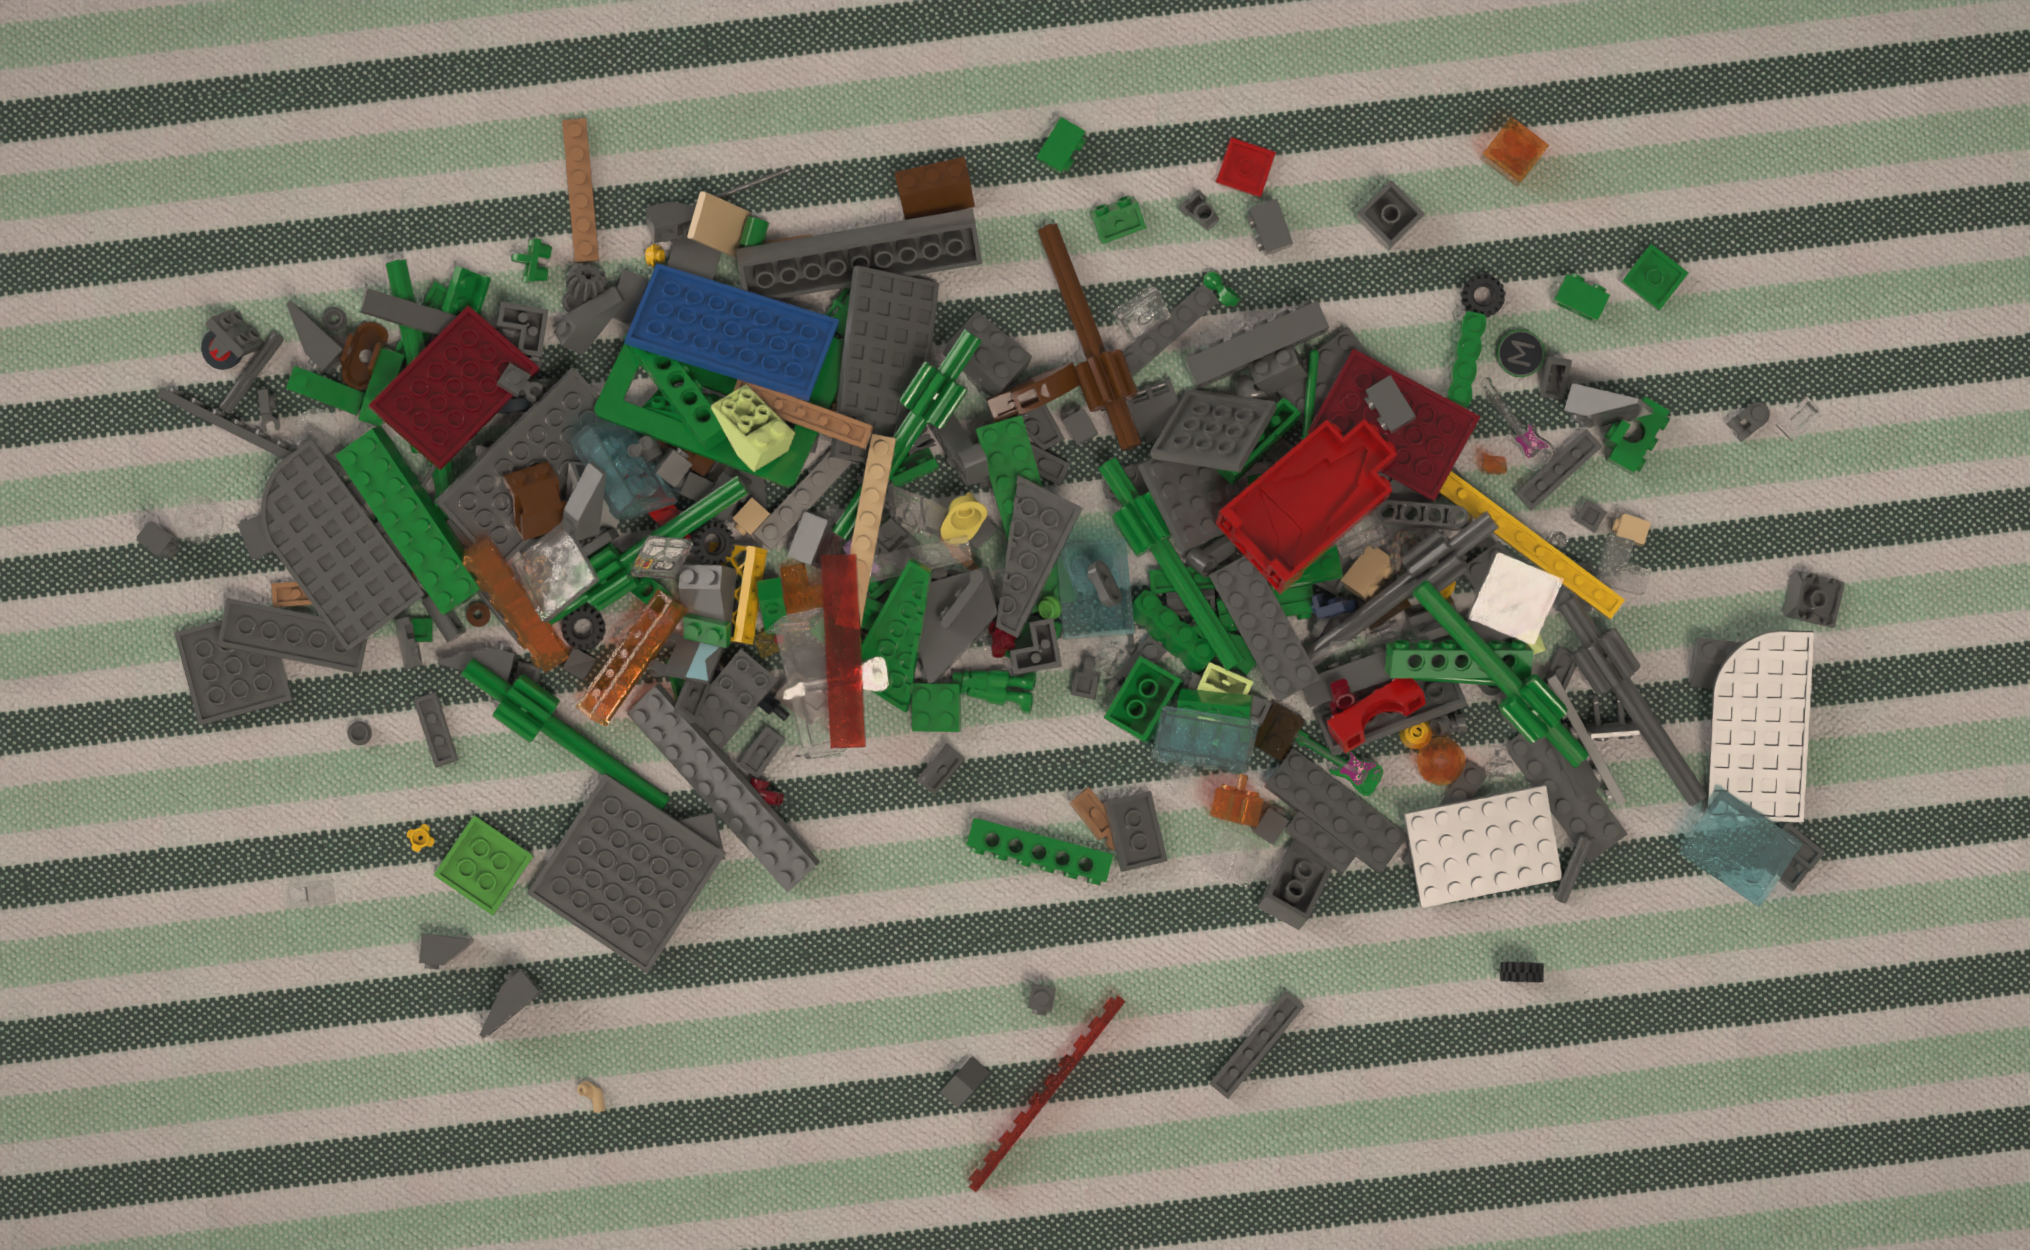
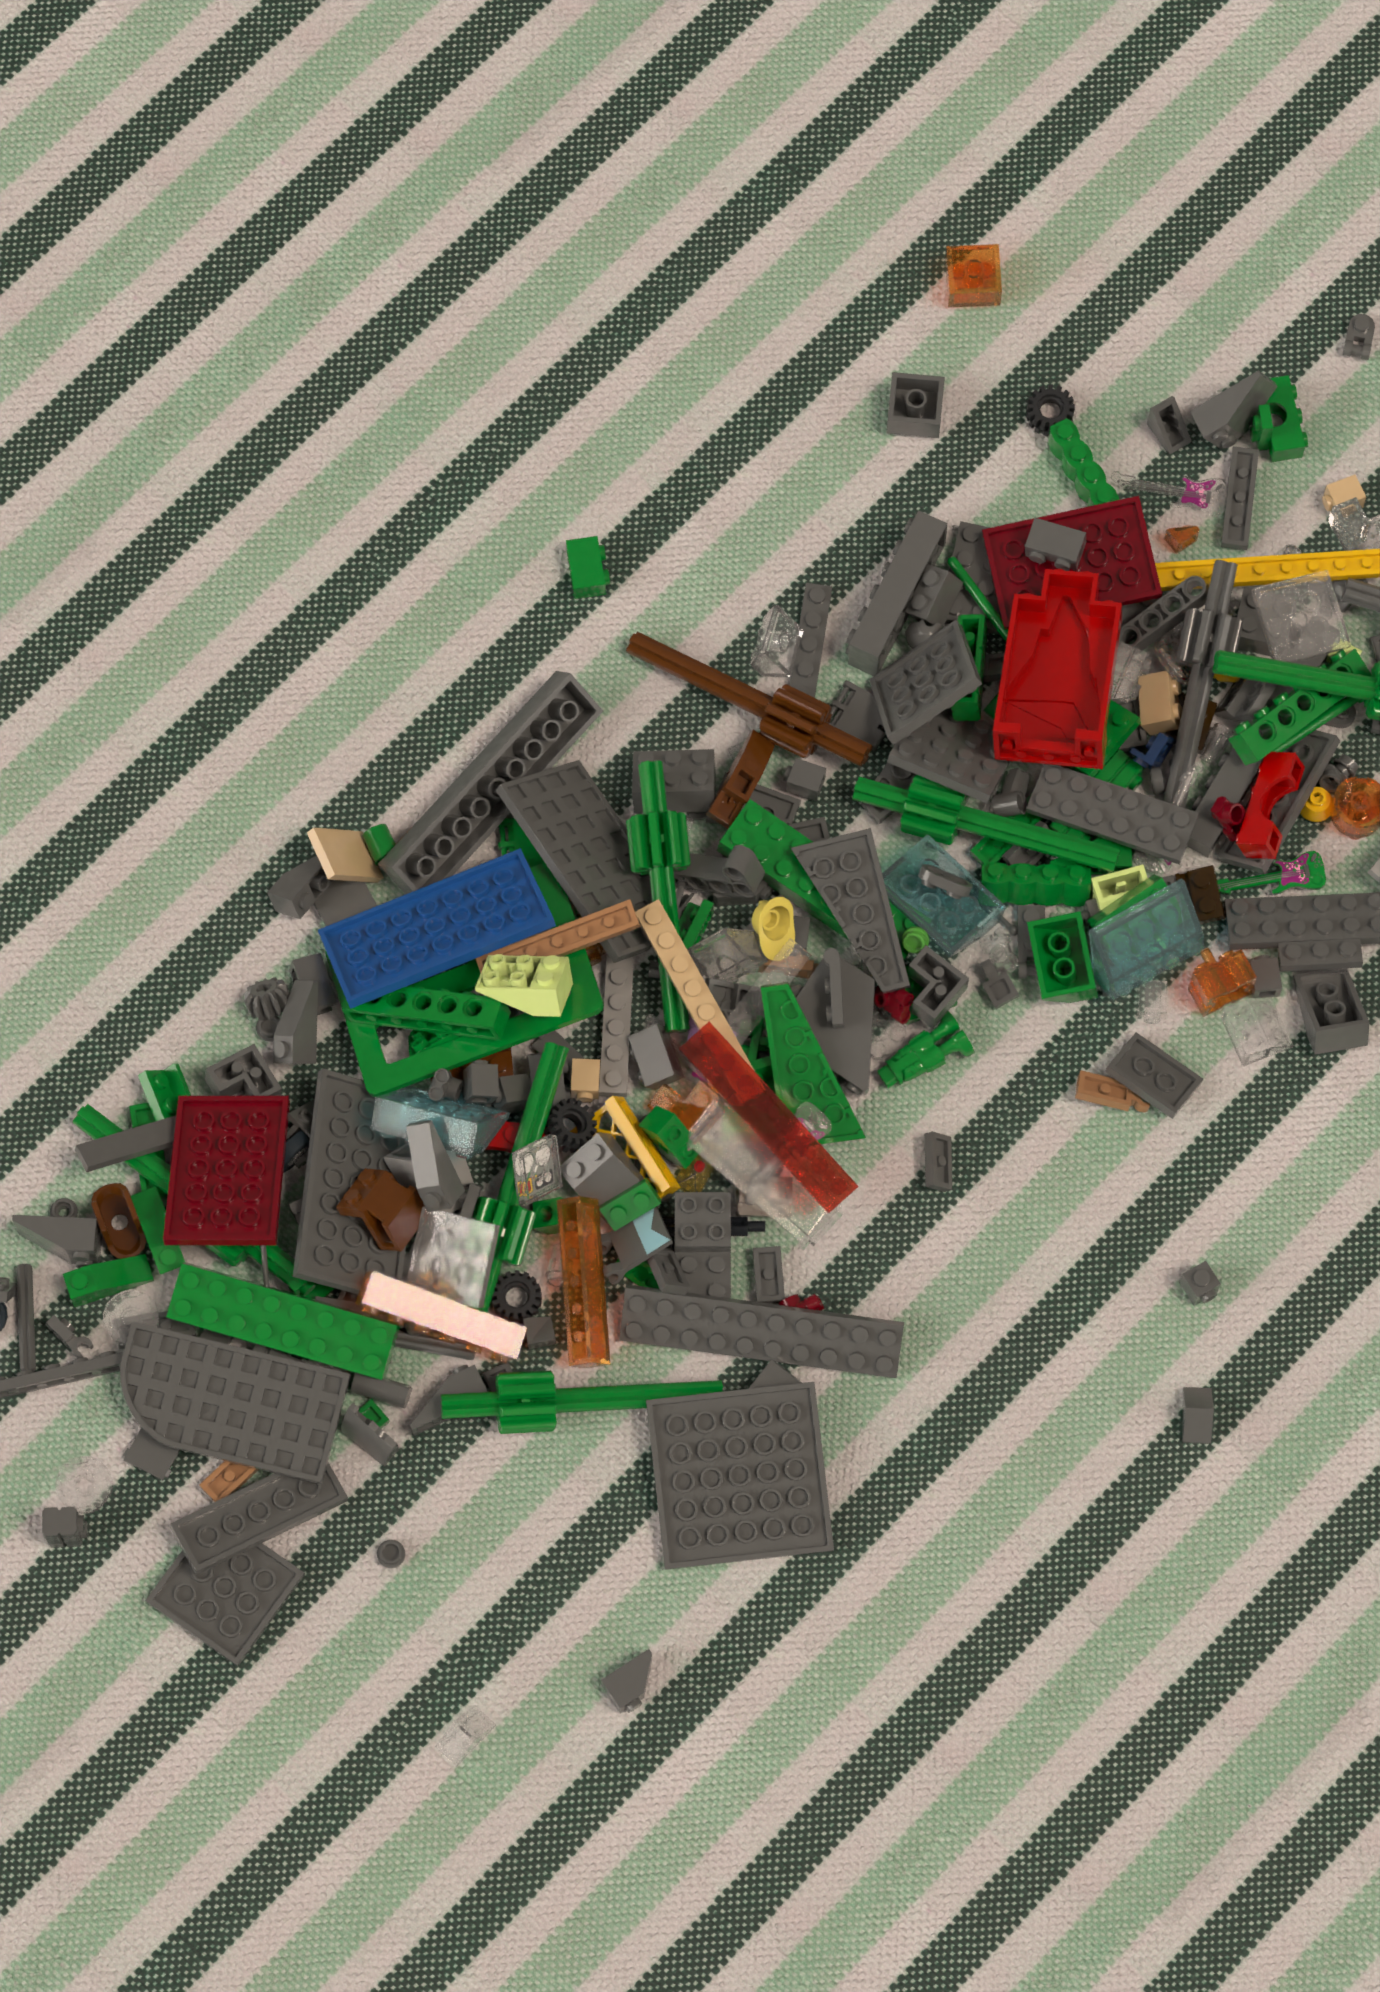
camera: 40 degrees left, 15 degrees down
(414, 835) = (525, 1593): yellow plate -> none
(436, 729) = (458, 1494): dark grey tile -> none
(483, 865) = (604, 1577): bright green plate -> none
(485, 617) = (415, 1370): reddish brown plate -> none
(512, 997) = (732, 1664): dark grey slope -> none
(516, 381) = (278, 1119): dark grey plate -> none
(534, 251) = (201, 1022): green hips -> none
(580, 190) = (195, 930): medium nougat plate -> none
(594, 1093) = (876, 1699): tan arm -> none
(654, 255) = (308, 931): yellow plate -> none
(752, 183) = (344, 805): dark grey piece -> none
(935, 189) = (506, 684): reddish brown slope -> none
(936, 707) = (888, 1111): green plate -> none
(1038, 1100) = (1277, 1373): clear red plate -> none
(1100, 859) = (1145, 1125): green brick -> none
(1117, 219) = (687, 588): green bracket -> none
(1197, 207) = (751, 527): dark grey plate -> none
(1227, 296) = (813, 575): green plate -> none
(1245, 167) = (758, 465): red tile -> none
(1270, 227) = (822, 494): dark grey brick -> none
(1520, 353) = (1123, 432): black tile -> none
(1581, 297) = (1133, 348): green brick -> none
(1590, 516) = (1300, 513): dark grey plate -> none
(1654, 277) = (1178, 286): green plate -> none

